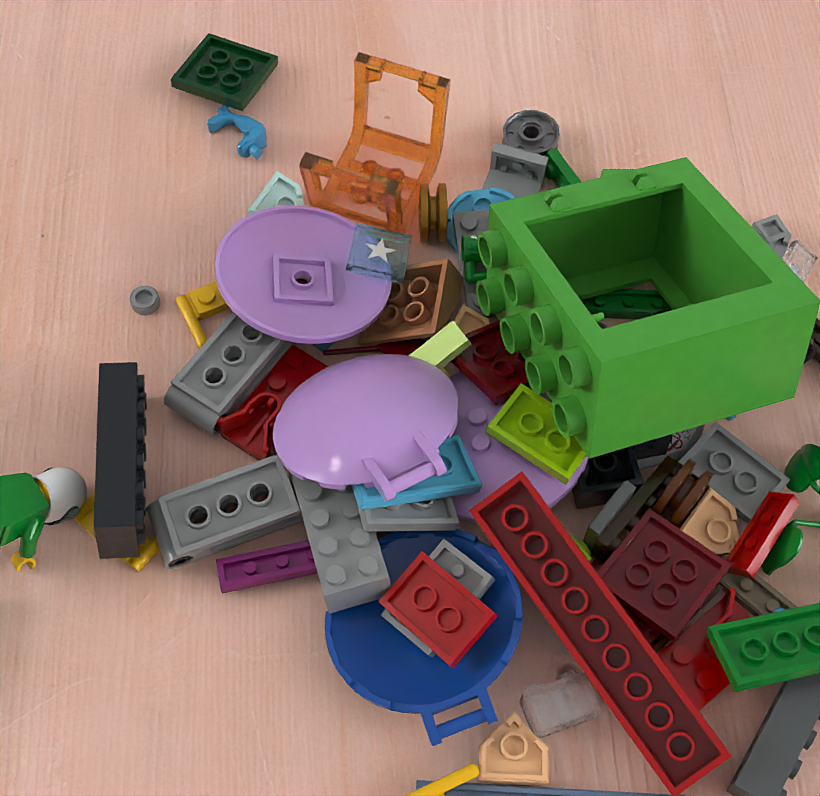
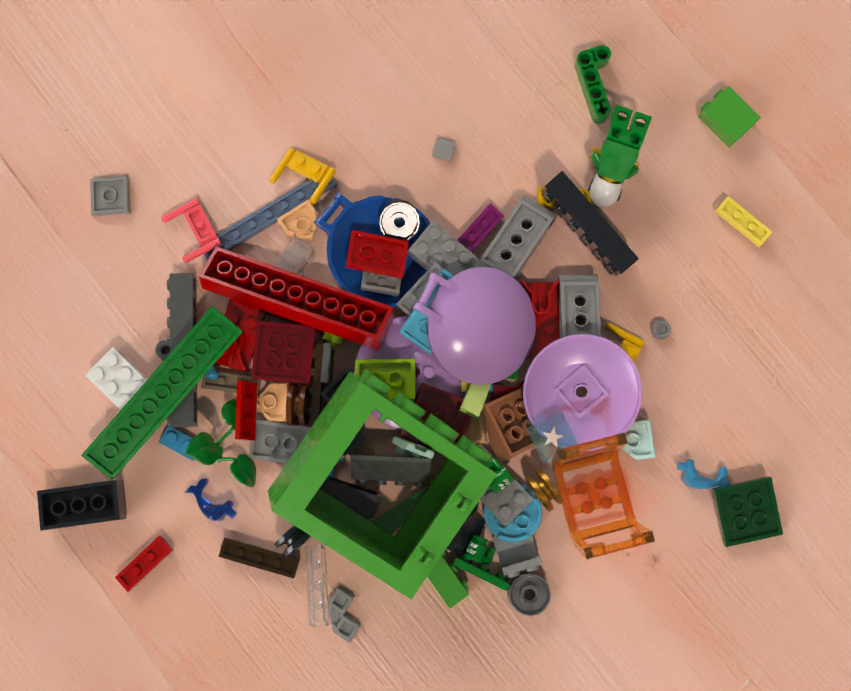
camera: 145 degrees right, 20 degrees up
(220, 720) = (444, 149): none -> light grey tile
(368, 643) = (402, 209): none -> wheel

